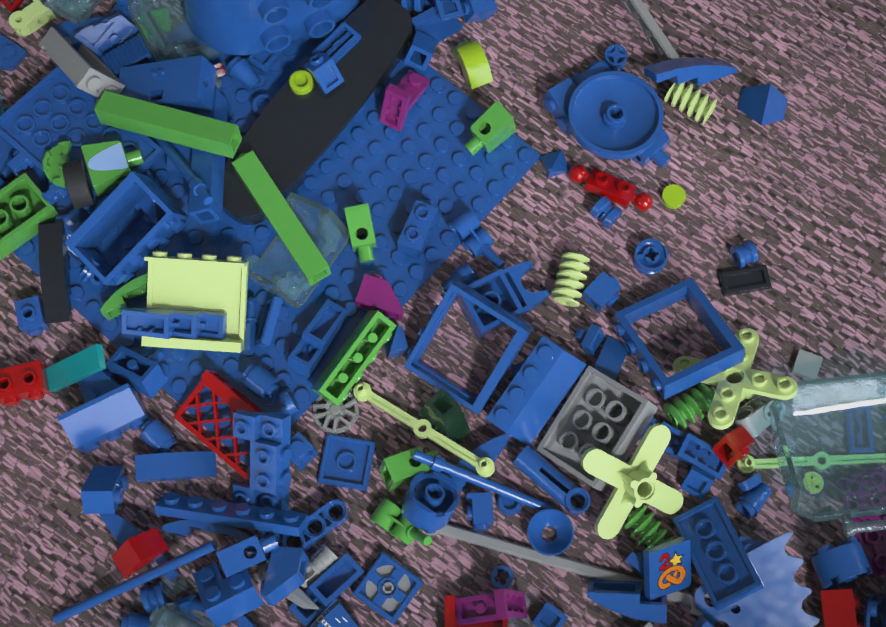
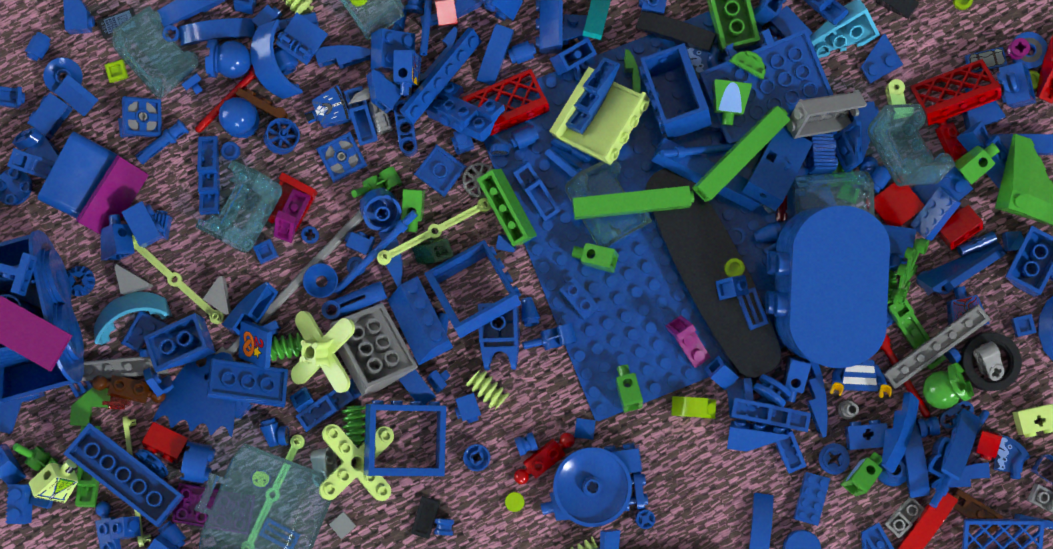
camera: 120 degrees right, 10 degrees up
(78, 184) = (722, 69): black tyre -> none
(378, 295) = (543, 246): magenta slope -> none
(733, 446) = (310, 436): red brick -> none

